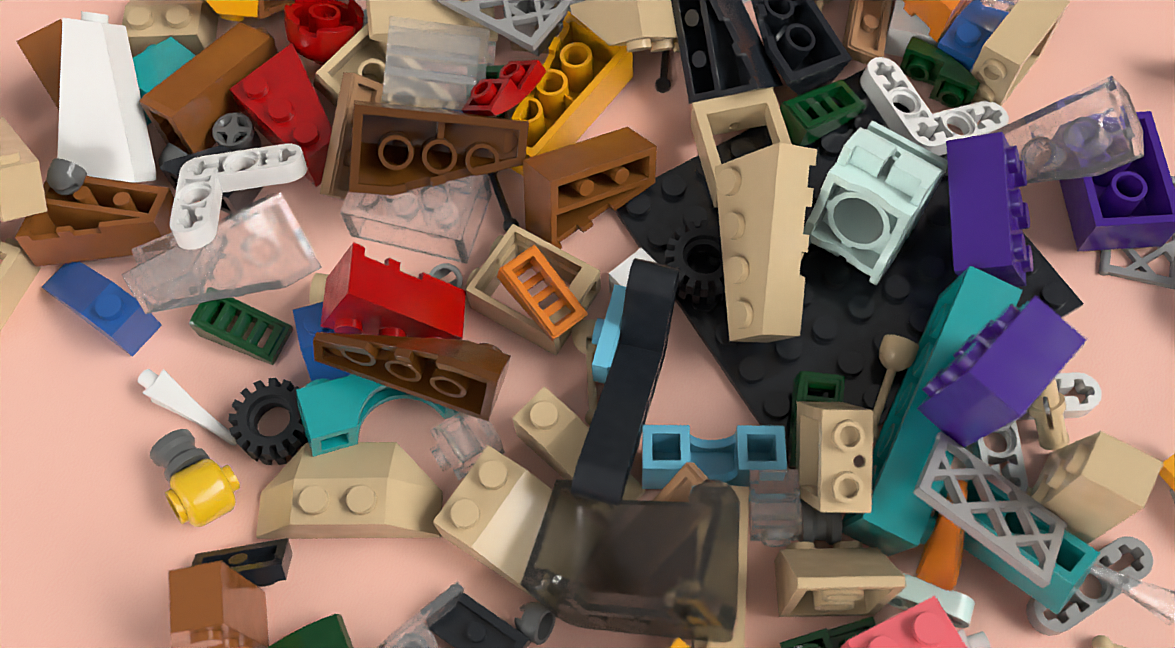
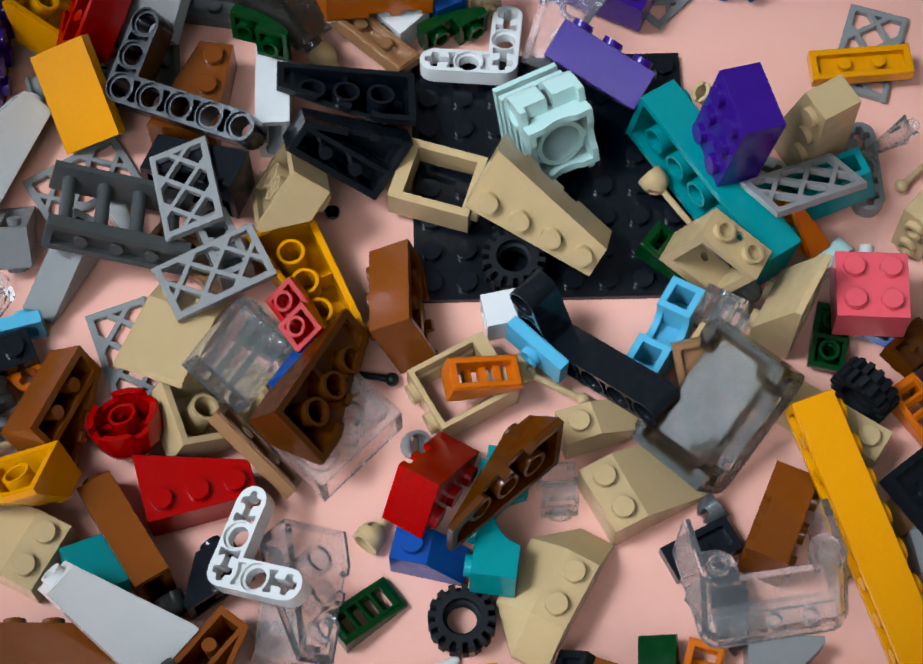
camera: 65 degrees left, 0 degrees up
(230, 129) = (180, 537): dark grey wheel -> none
(803, 129) = (443, 117): dark green slope -> none

